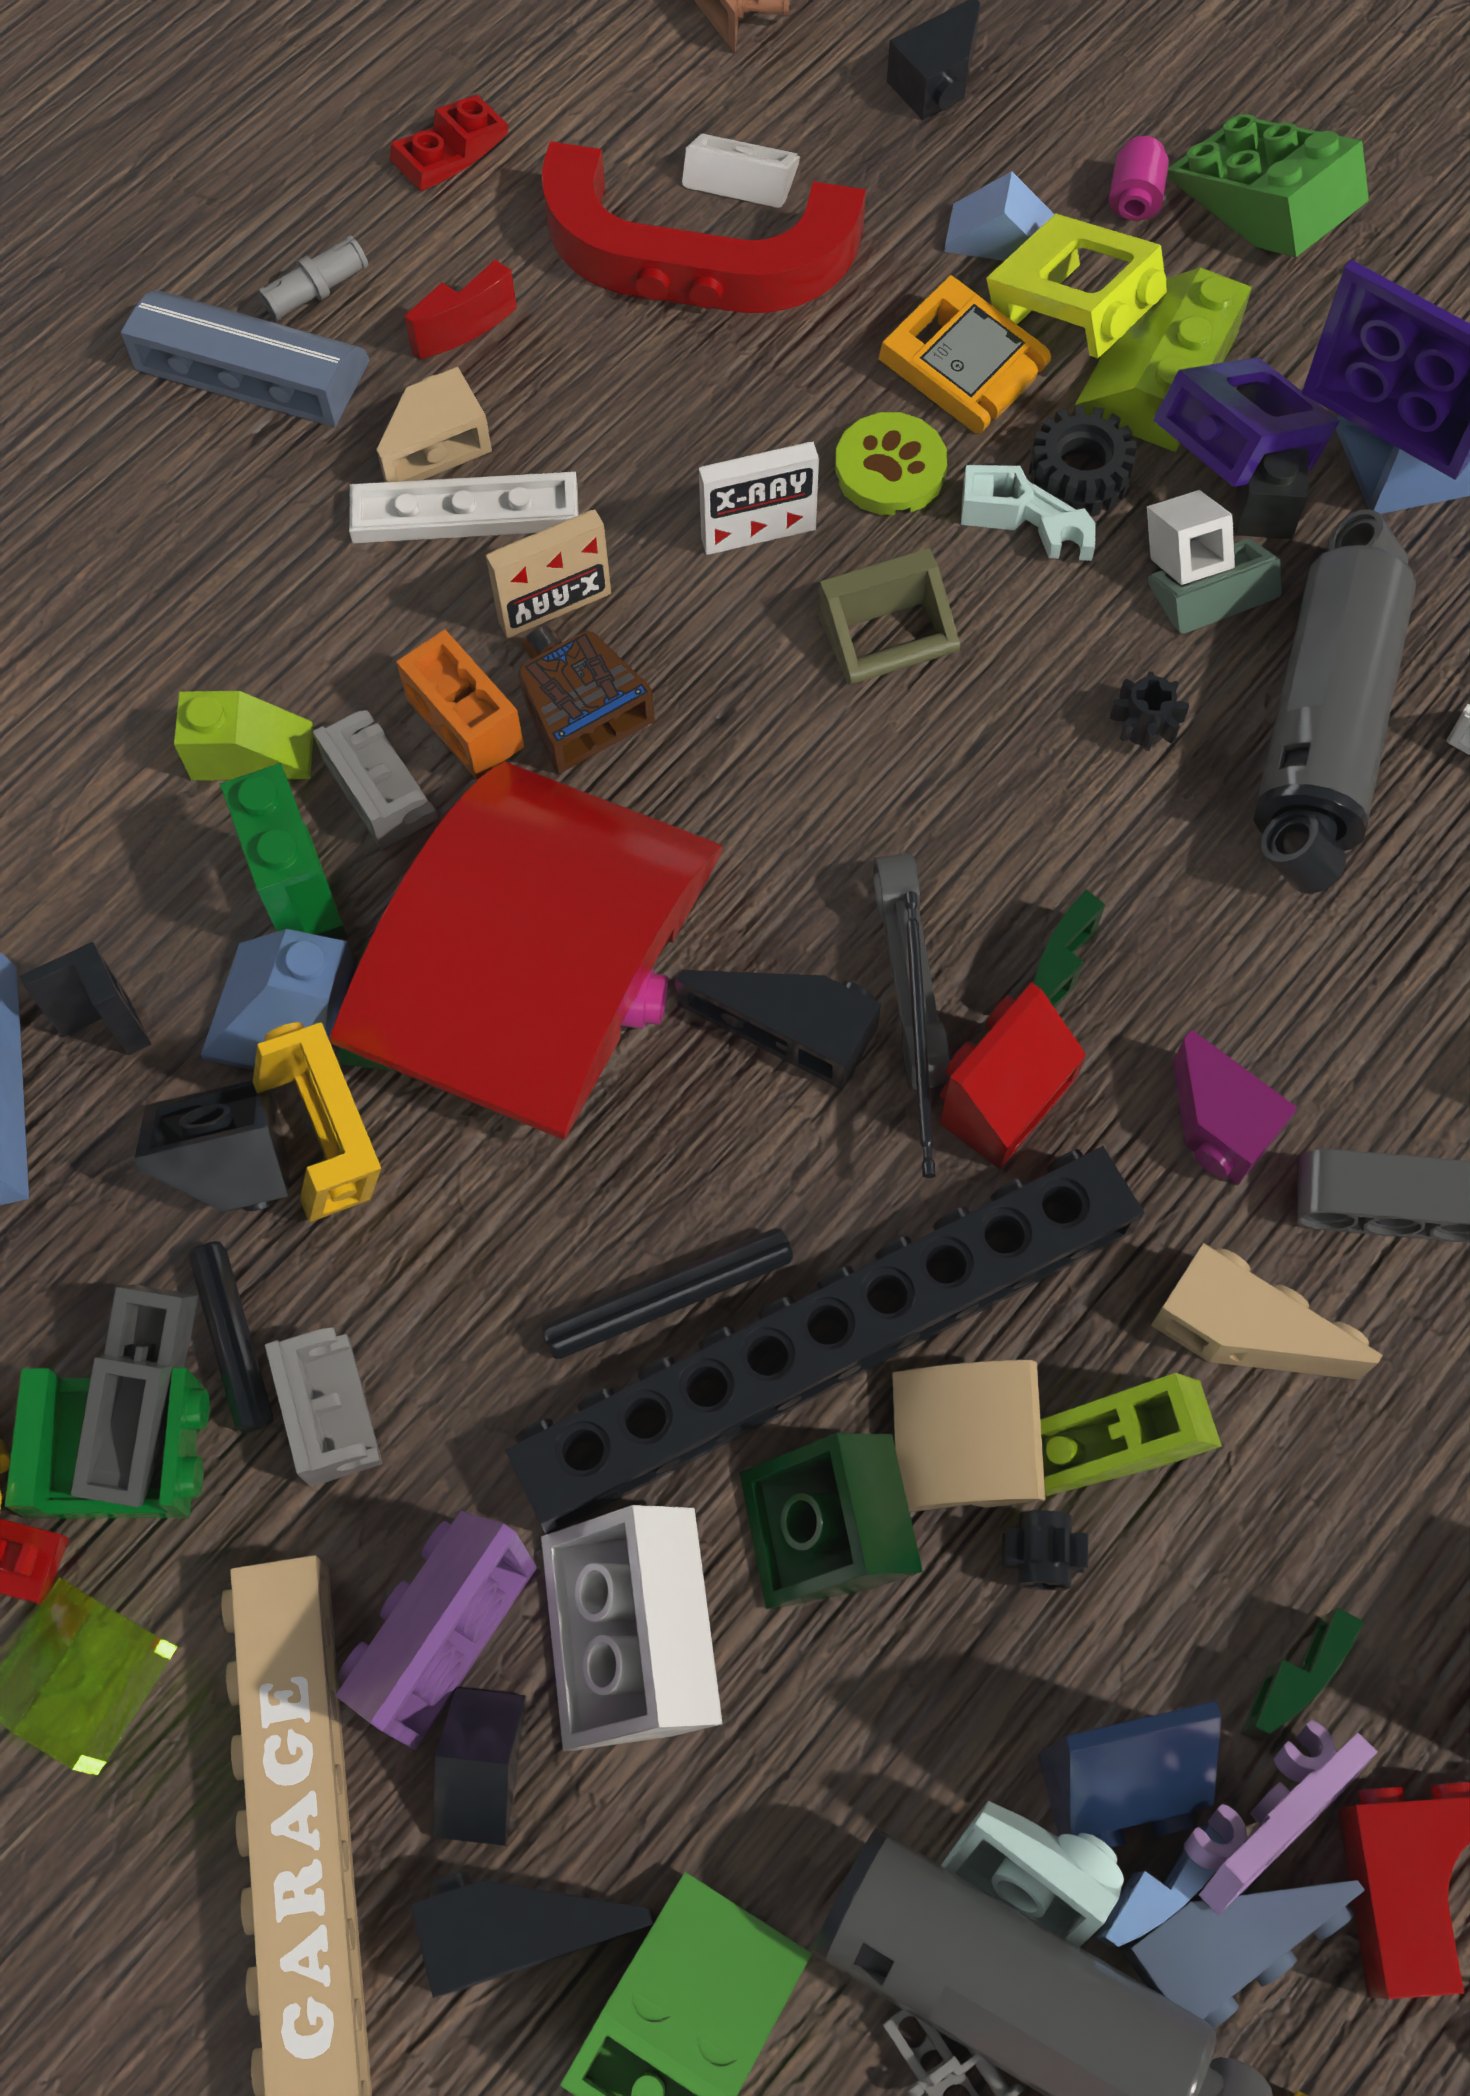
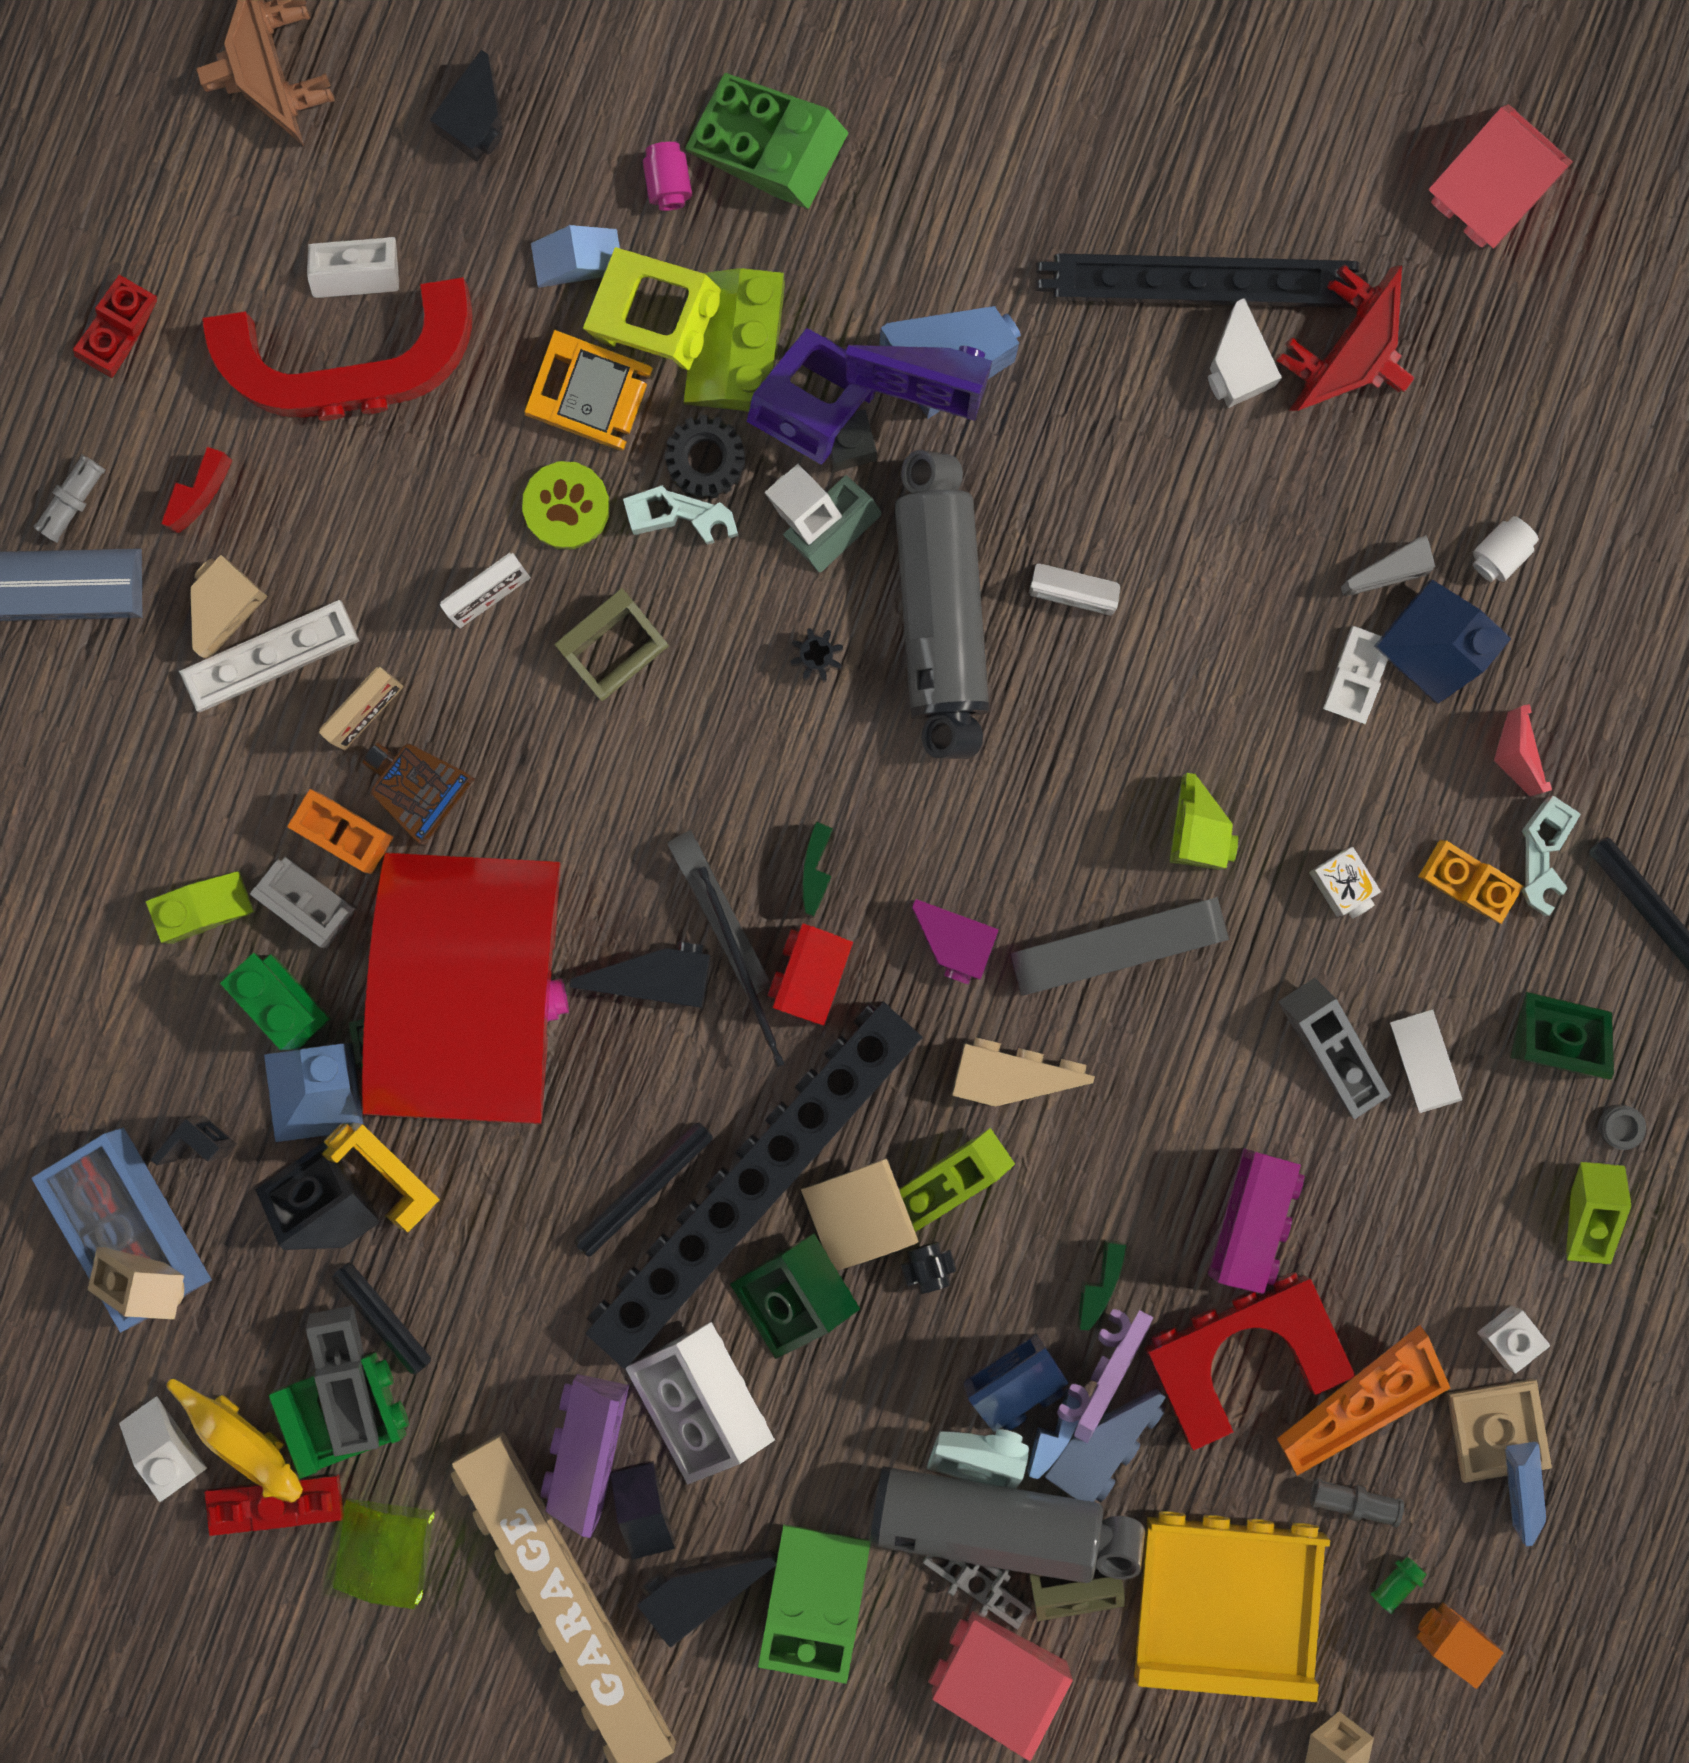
camera: 20 degrees left, 20 degrees up
(323, 1406) = (460, 1341): light grey hinge -> none

